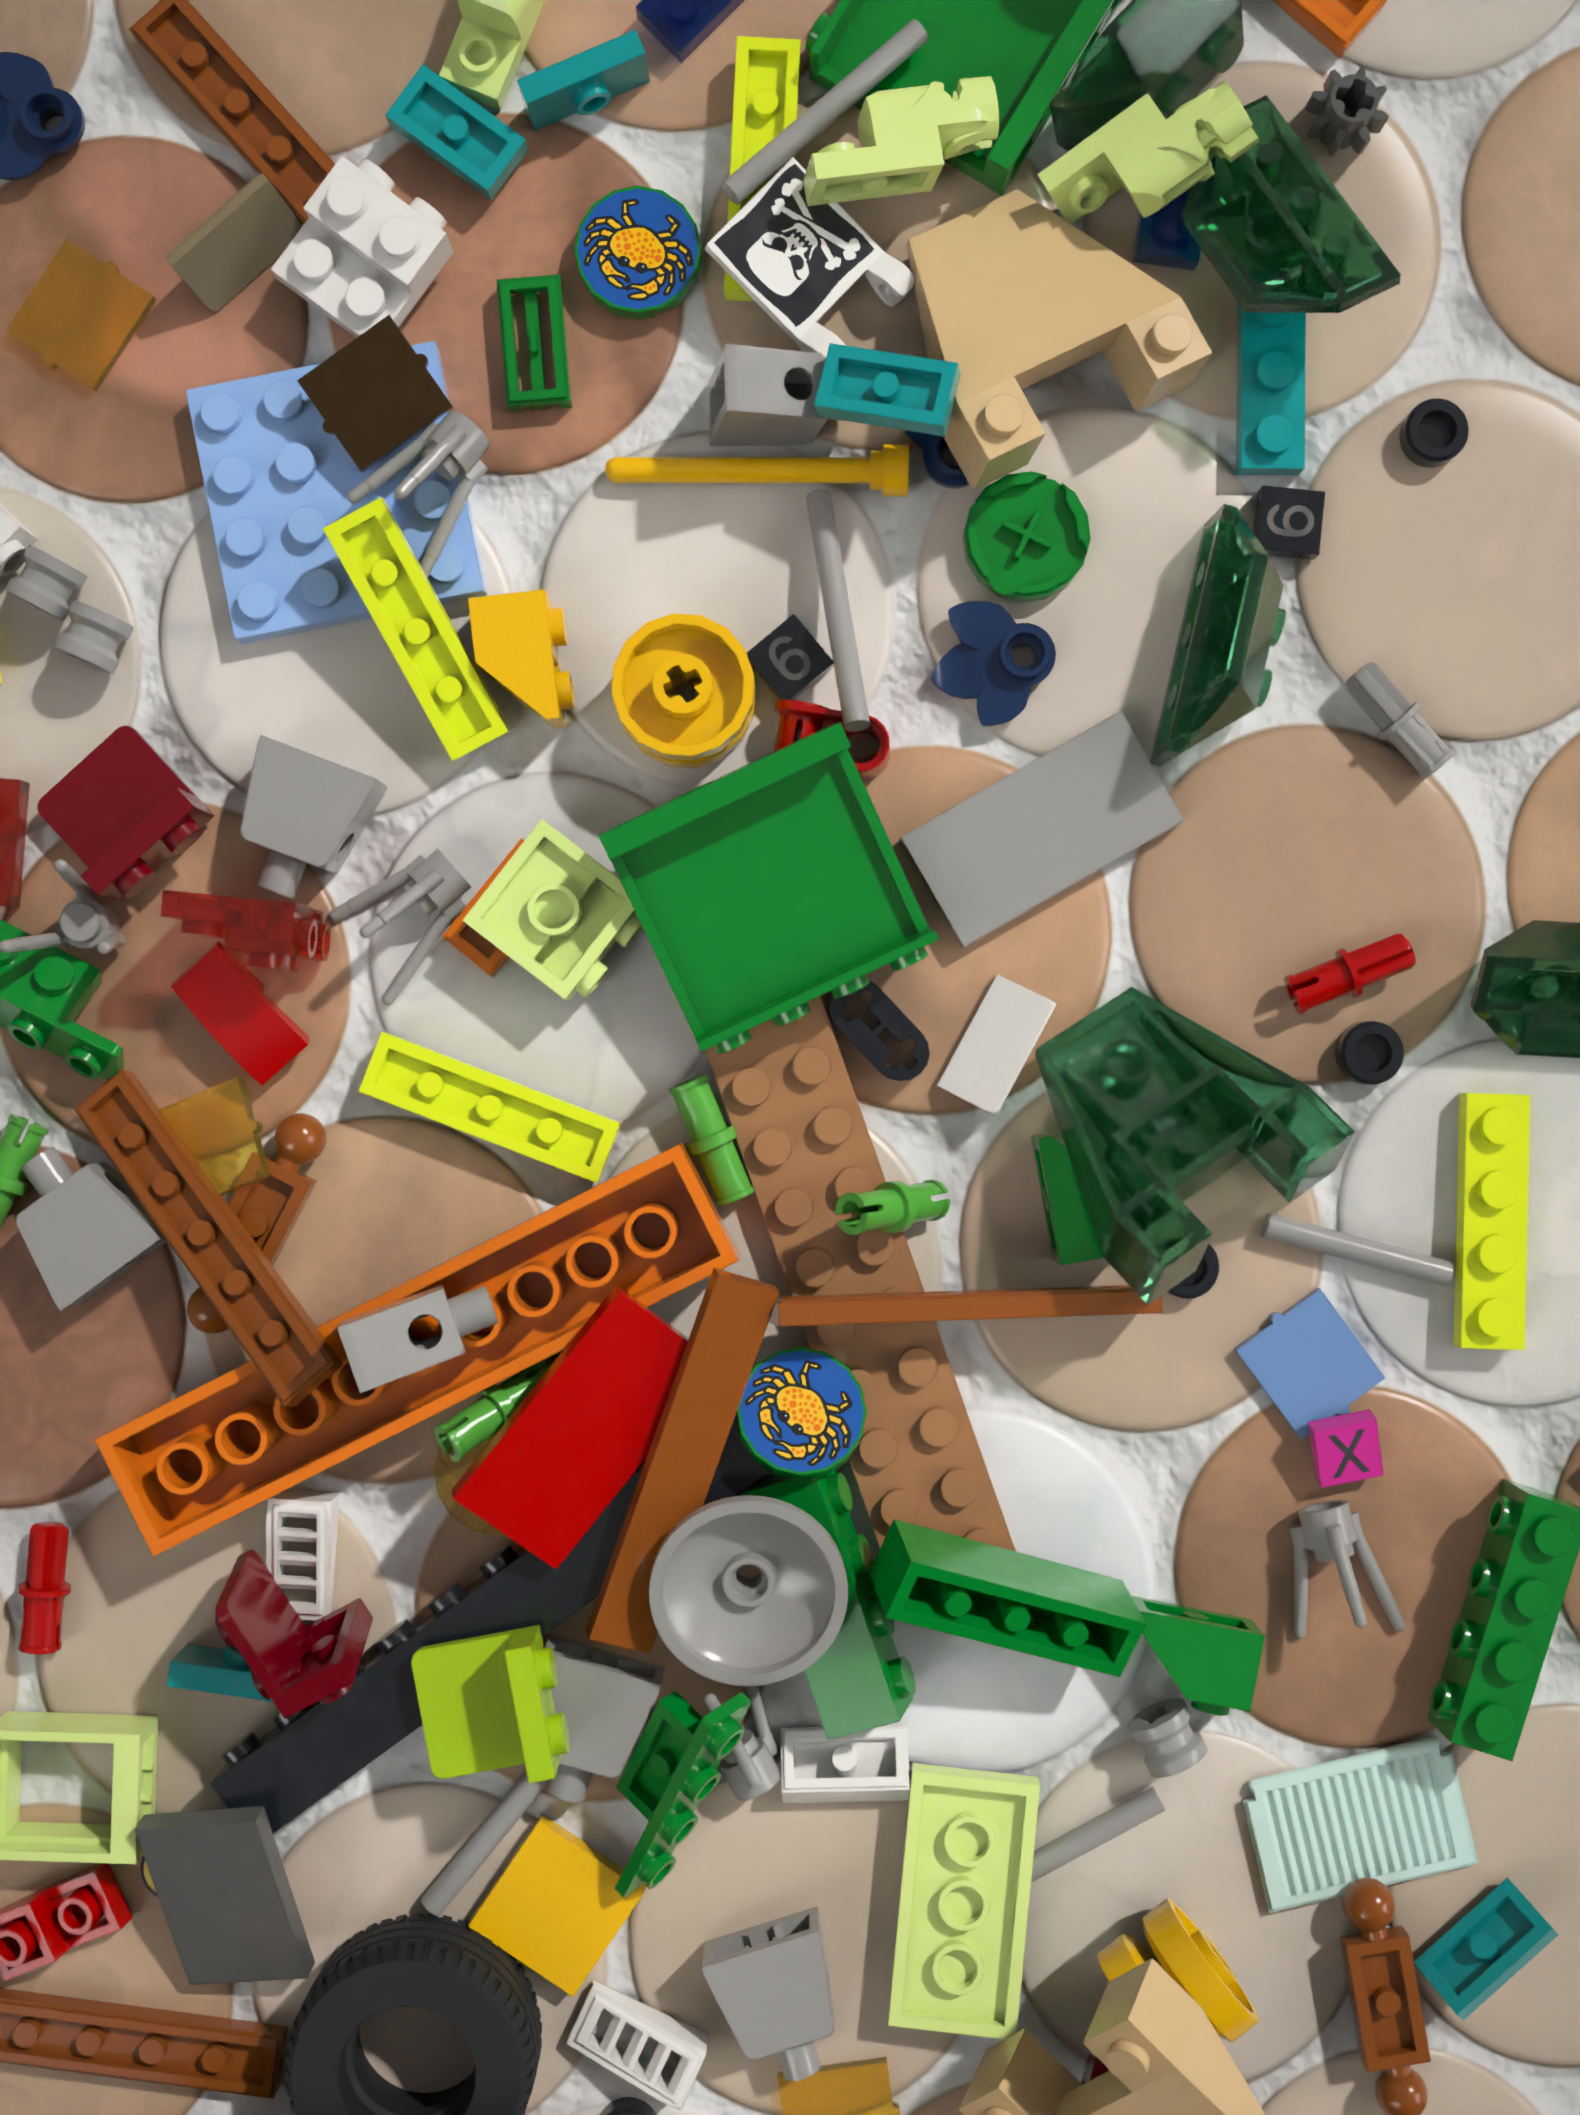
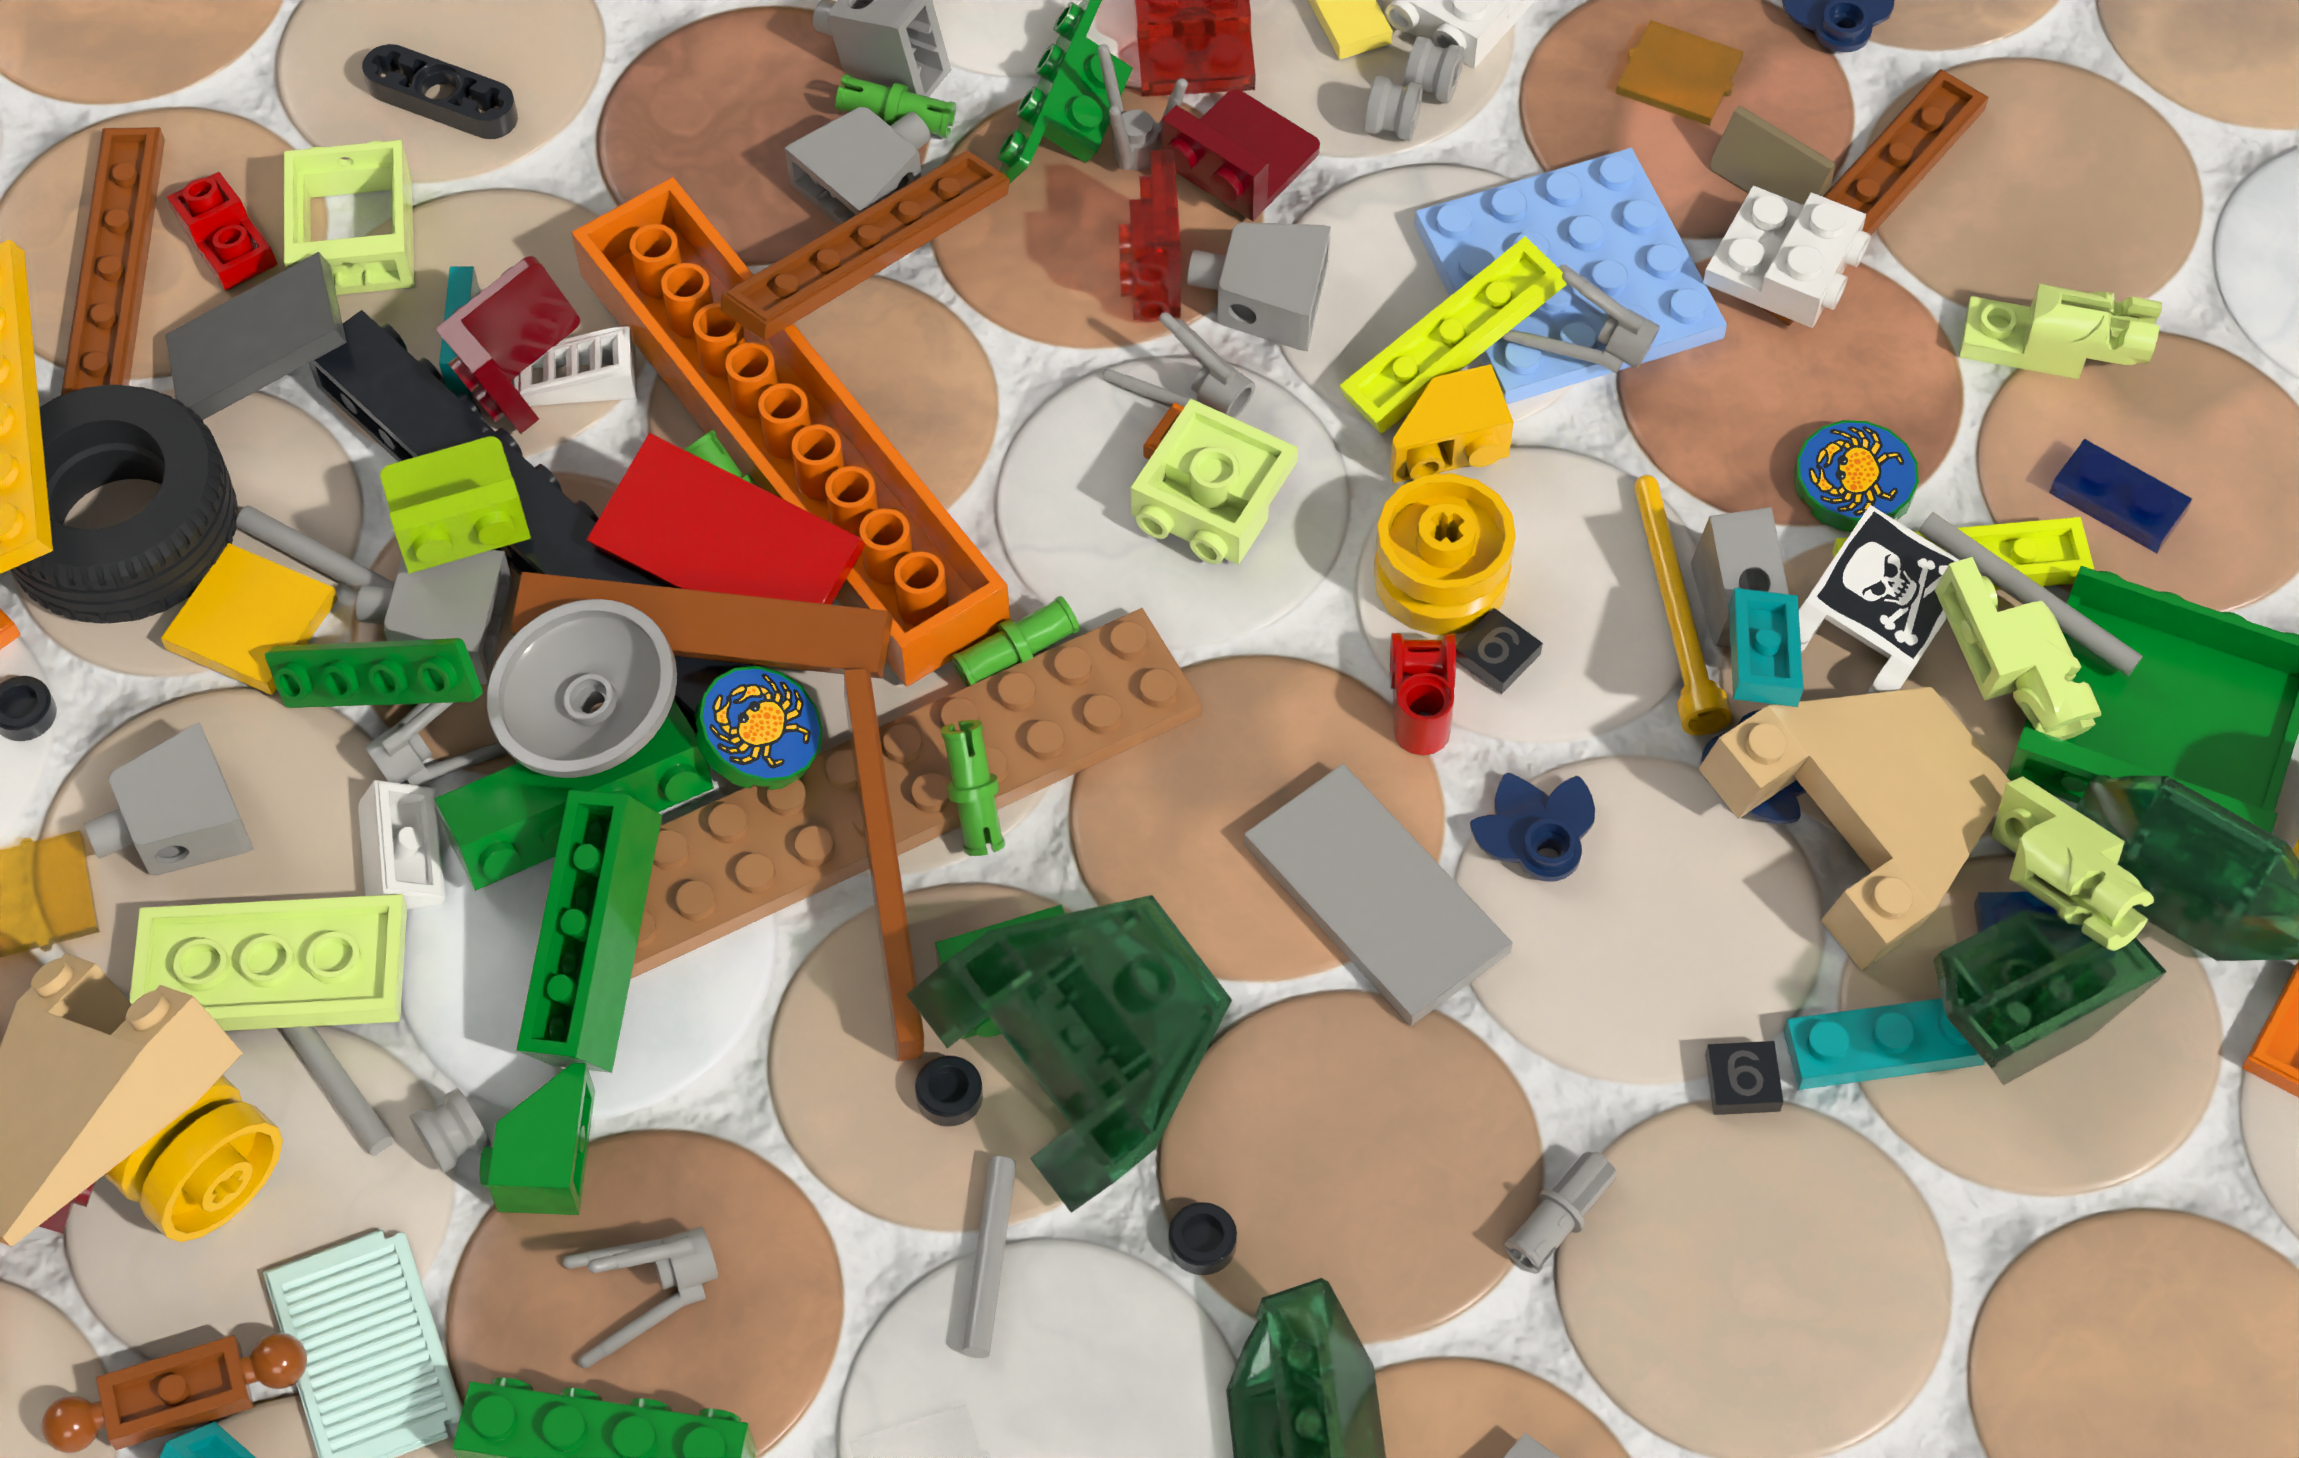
camera: 80 degrees right, 30 degrees down
(44, 1589) = (527, 182): red axle -> none
(221, 1135) = (960, 255): clear yellow piece -> none
(239, 1014) = (1070, 256): red slope -> none
(270, 1205) = (911, 304): dark orange plate -> none
(375, 393) = (1661, 274): dark brown piece -> none
(384, 1347) = (798, 369): light grey torso -> none
(457, 132) = (1923, 317): teal plate -> none
(490, 1107) = (1020, 458): neon yellow plate -> none
(538, 397) = (1751, 414): green tile -> none
(584, 81) = (2000, 405): teal plate -> none
(647, 2075) = (112, 745): white slope -> none
(769, 889) = (1271, 633): green panel -> none
(837, 611) = (1551, 668): light grey bar -> none
(870, 1045) = (1138, 766): black beam -> none
(996, 1045) = (1126, 872): white slope -> none
(1026, 537) = (1669, 841): green tile -> none
(1222, 638) = (1594, 1013): clear green wedge -> none
(1309, 1362) = (860, 1230): medium blue piece -> none
(1345, 1448) = (774, 1268): dark pink tile -> none
(1350, 972) = (1283, 1198): red axle -> none
(1359, 97) = (2179, 1062): dark grey gear -> none
(1433, 433) = (1875, 1208): black tile -> none
(1491, 1221) = (1040, 1385): neon yellow plate -> none

